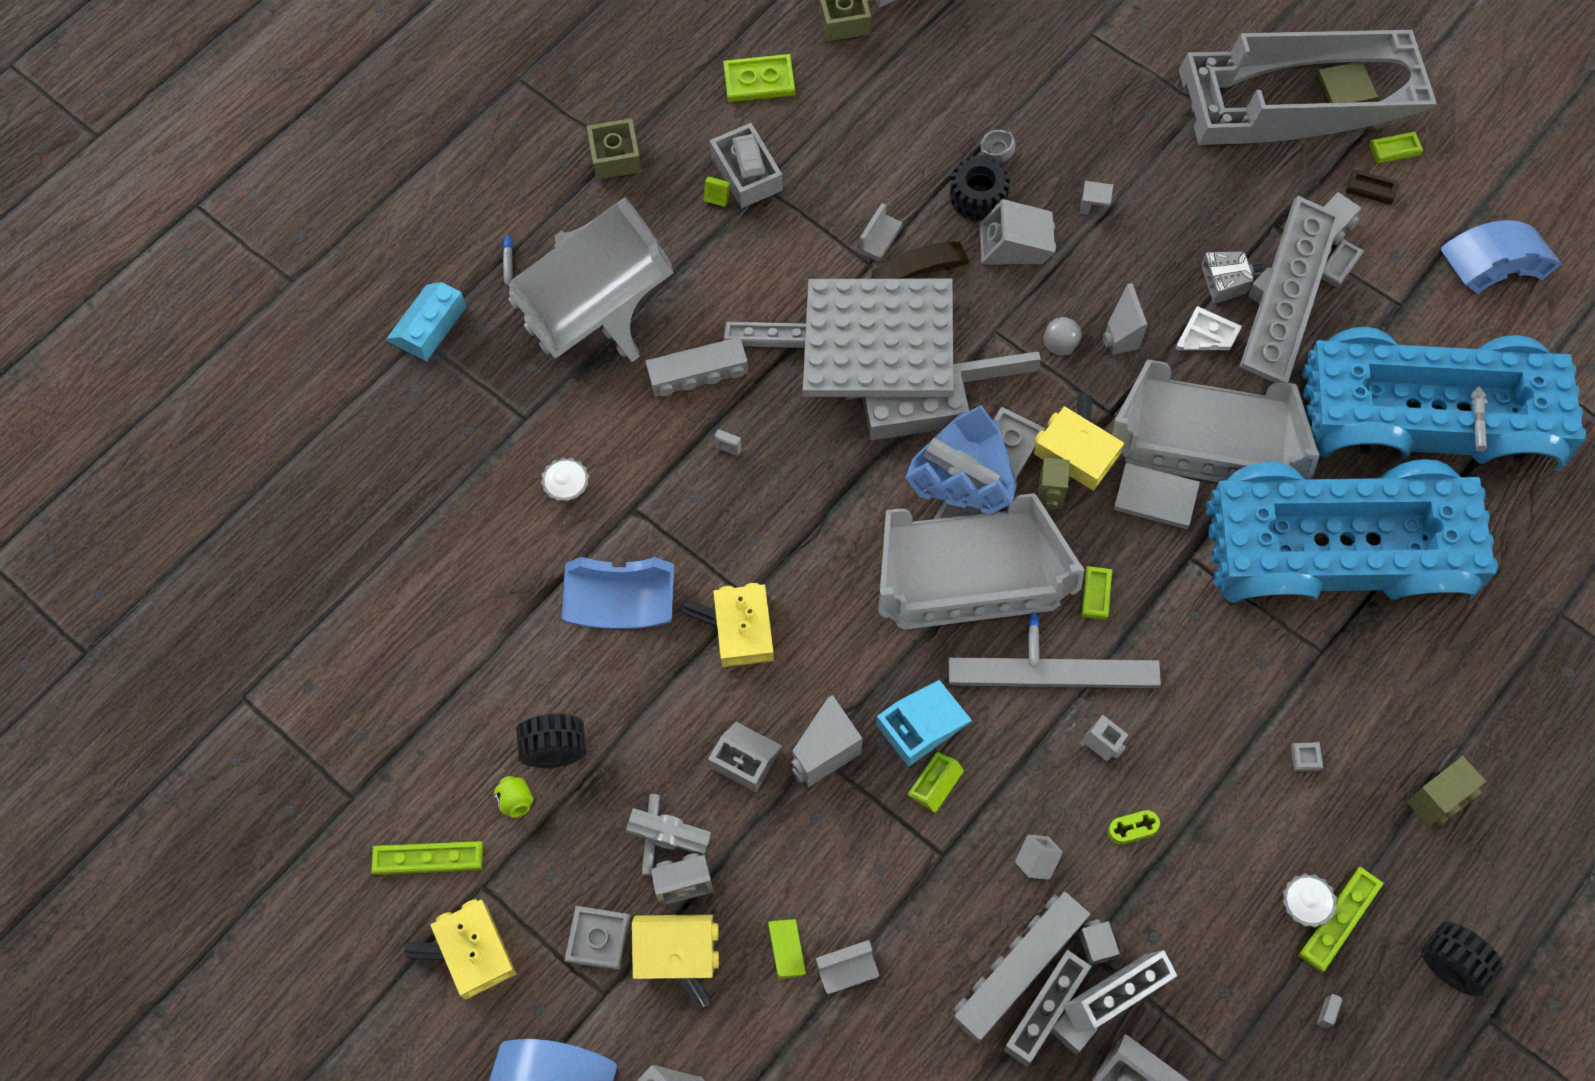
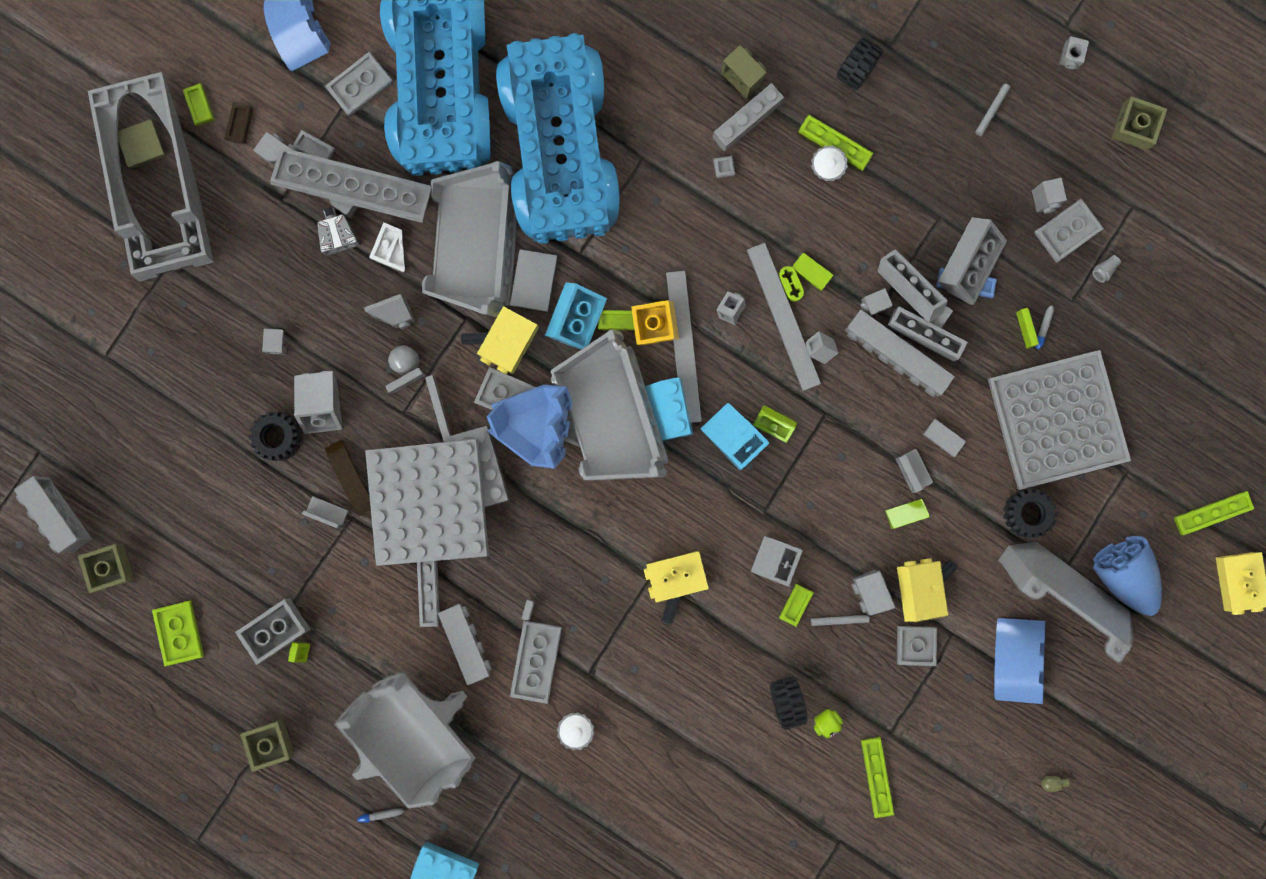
camera: 100 degrees left, 20 degrees up
(469, 947) = (937, 734): light yellow piece -> none
(618, 596) = (664, 674): medium blue panel -> none
(661, 448) = (535, 661): none -> light grey tile
(668, 832) = (840, 608): light grey piece -> none
(681, 778) = (796, 605): none -> lime tile
(748, 156) = (270, 629): light grey tile -> none
(826, 744) = (764, 504): light grey slope -> none
(890, 1020) = (944, 438): none -> light grey tile
(957, 461) = (535, 427): light grey piece -> none
(970, 644) = (670, 408): none -> medium azure slope
(998, 145) = (231, 425): light grey hair -> none
(1033, 624) = (661, 363): light grey piece -> none
(1035, 332) = (405, 380): none -> light grey tile
(1053, 483) = (539, 357): olive brick -> none
(1086, 811) = (783, 317): none -> light grey tile
(1089, 633) = (655, 322): none -> yellow brick
(1105, 538) = (575, 316): none -> medium azure slope
(1150, 859) = (812, 271): none -> lime tile
(1329, 1011) = (900, 149): light grey tile -> none
(1379, 794) = (748, 117): none -> light grey brick
(1423, 318) = (359, 84): none -> light grey tile
(1479, 414) = (442, 43): light grey piece -> none

